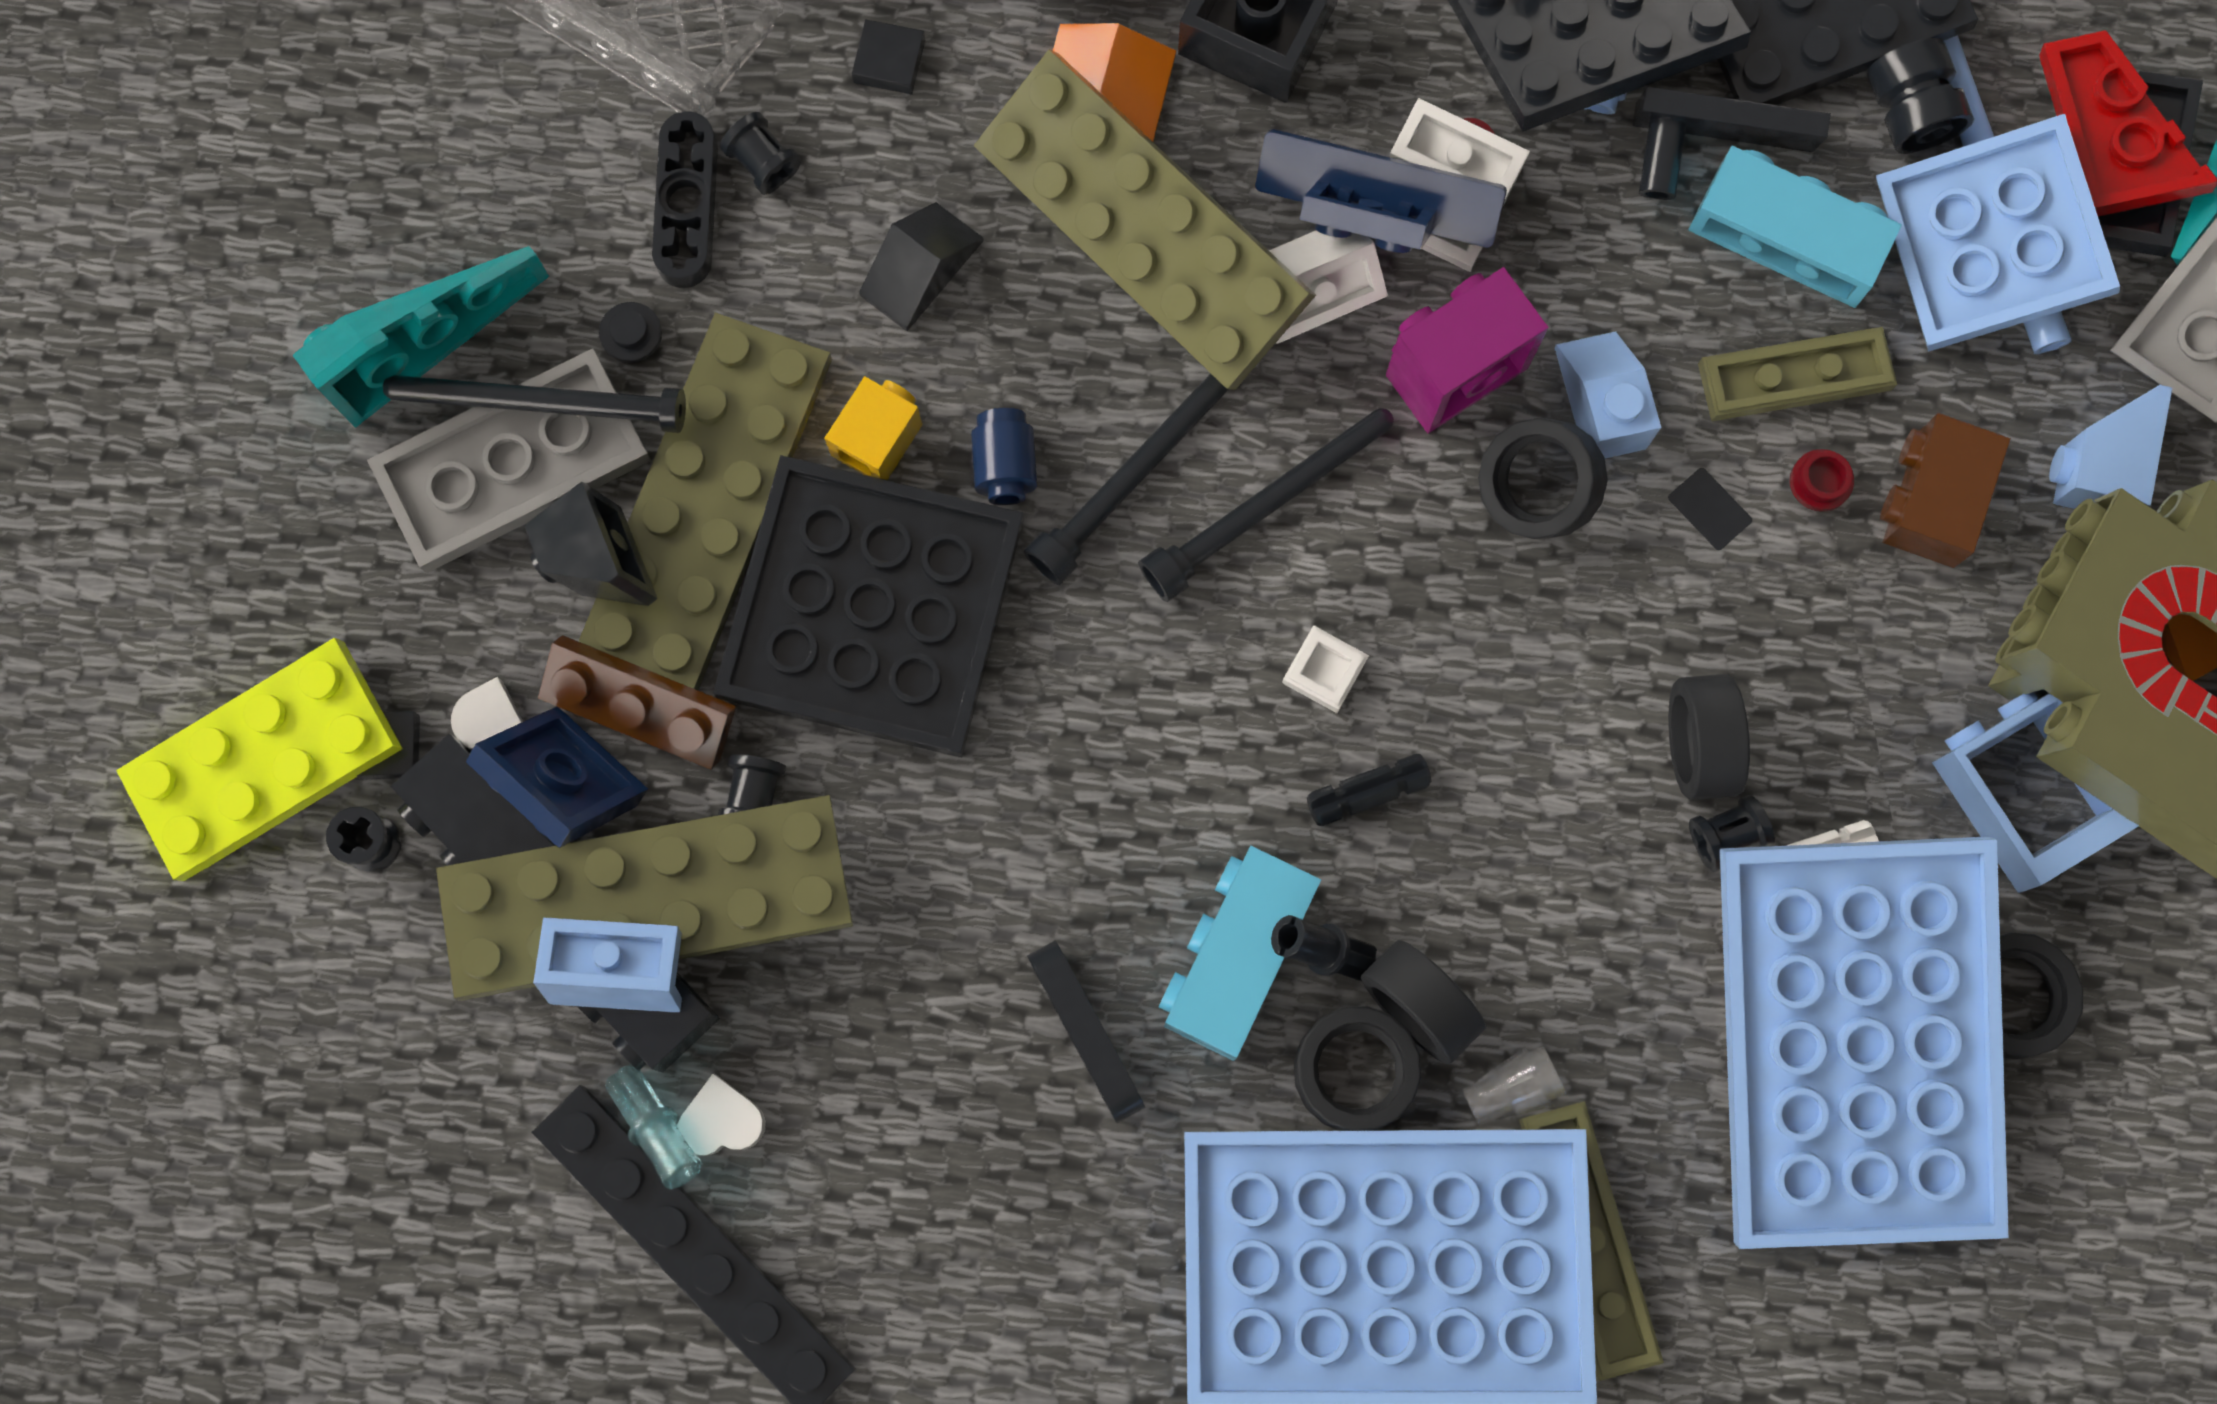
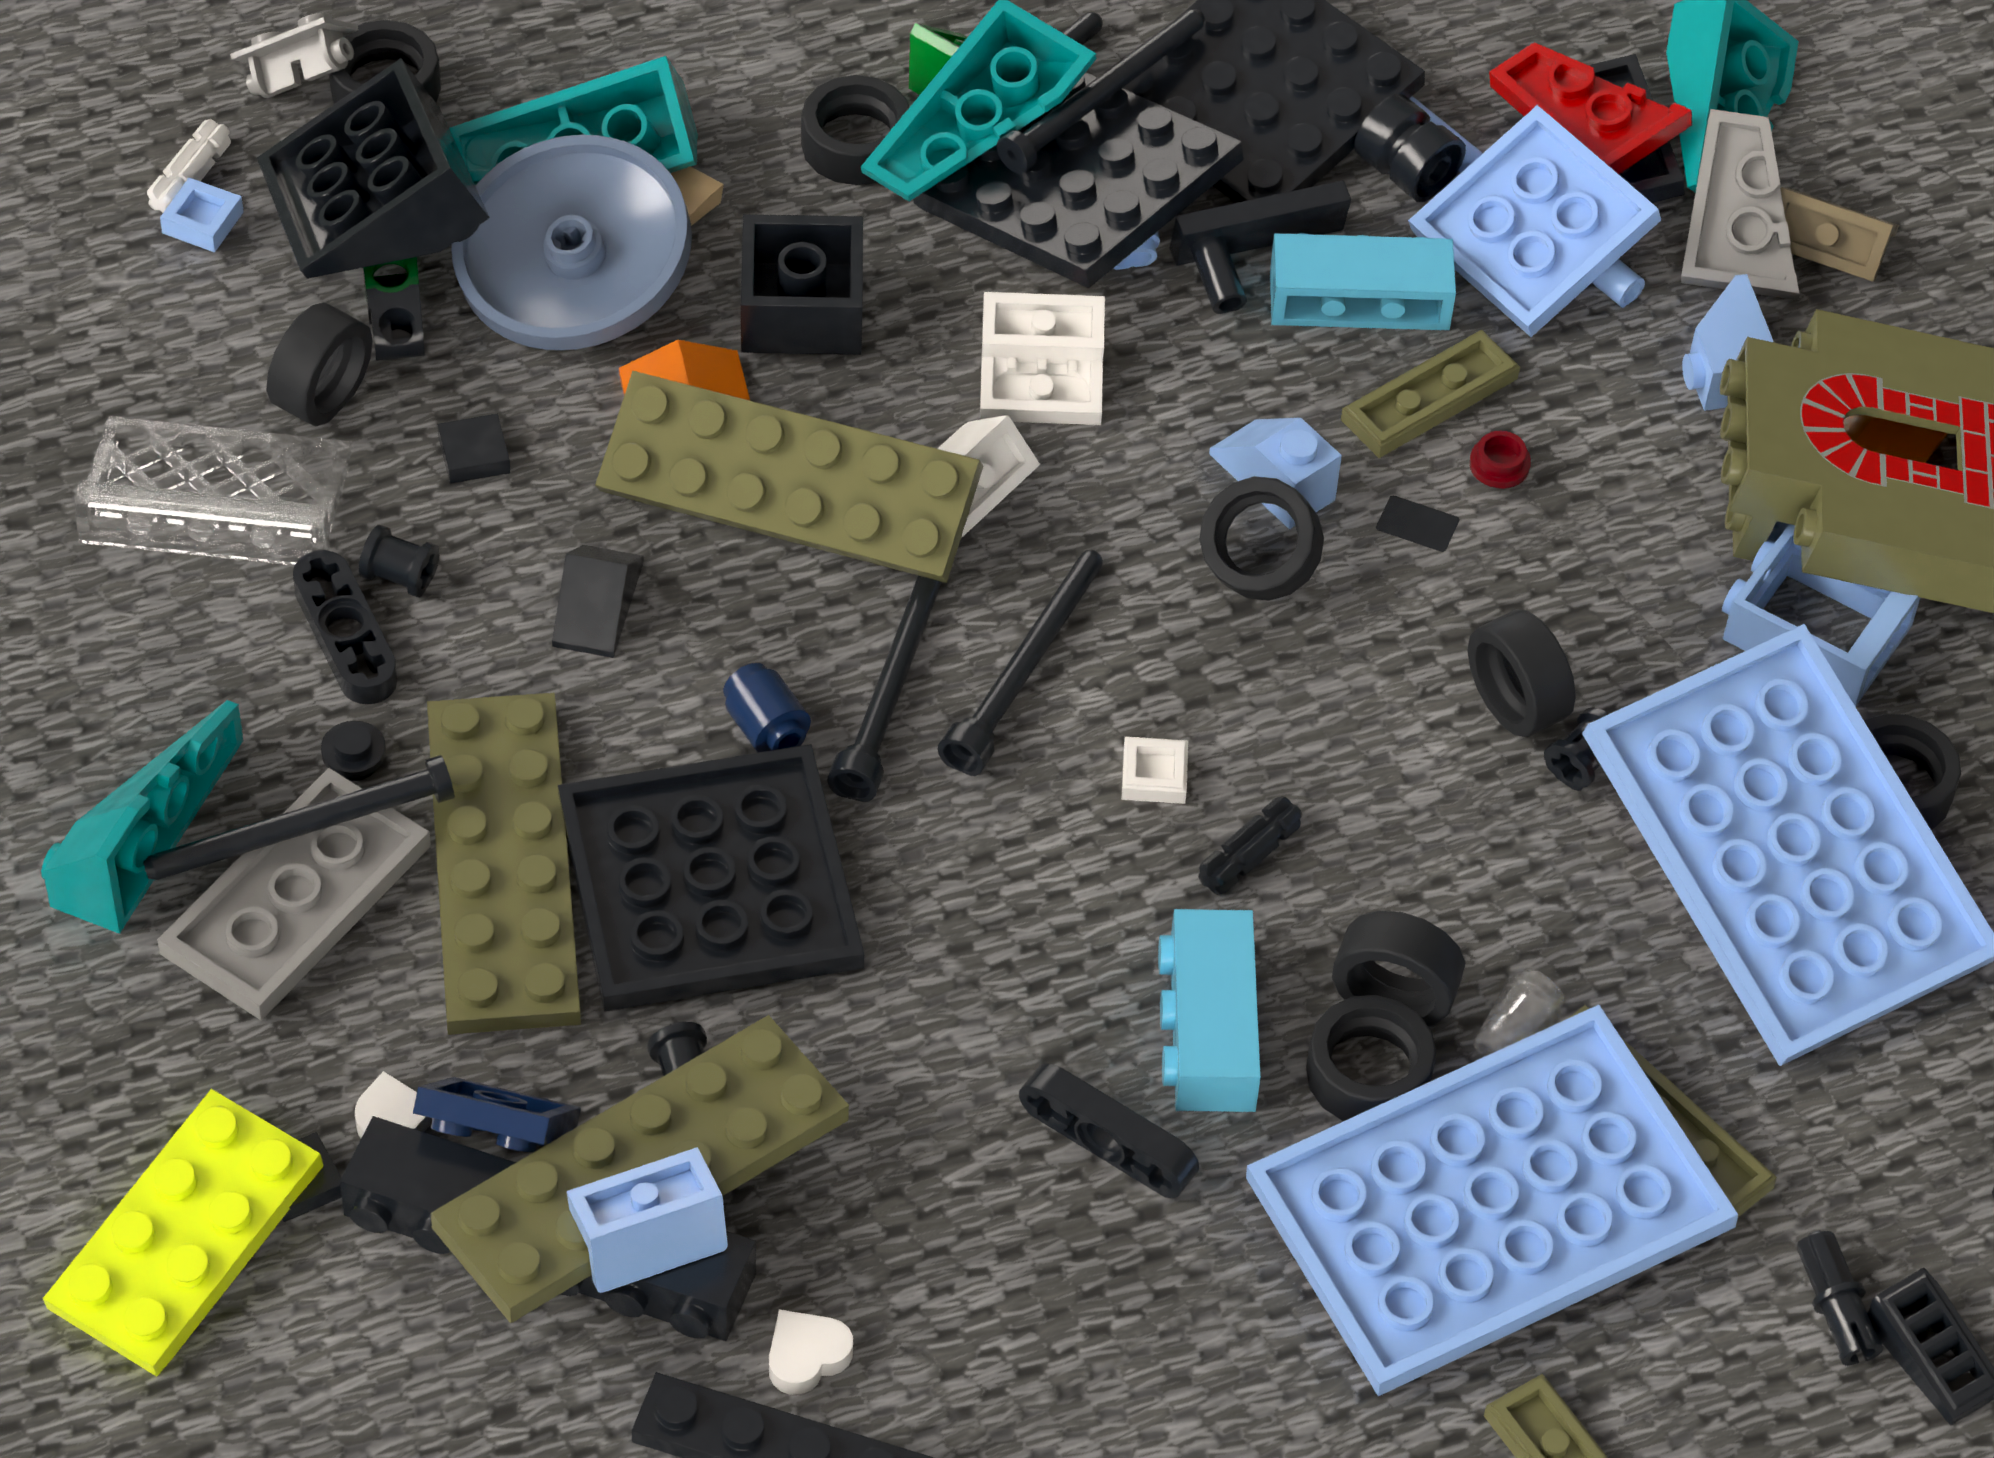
camera: 30 degrees left, 25 degrees down
(343, 832) = (343, 1260): black bush -> none
(589, 548) = (424, 921): black slope -> none
(636, 702) = (531, 1037): reddish brown plate -> none
(653, 1127) = (748, 1371): clear light blue axle -> none
(875, 428) = (633, 729): yellow brick -> none
(1323, 947) = (1286, 963): black axle -> none
(1378, 194) = (987, 375): bracket -> none
(1464, 348) = (1136, 464): magenta brick -> none
(1943, 489) = (1606, 426): reddish brown brick -> none

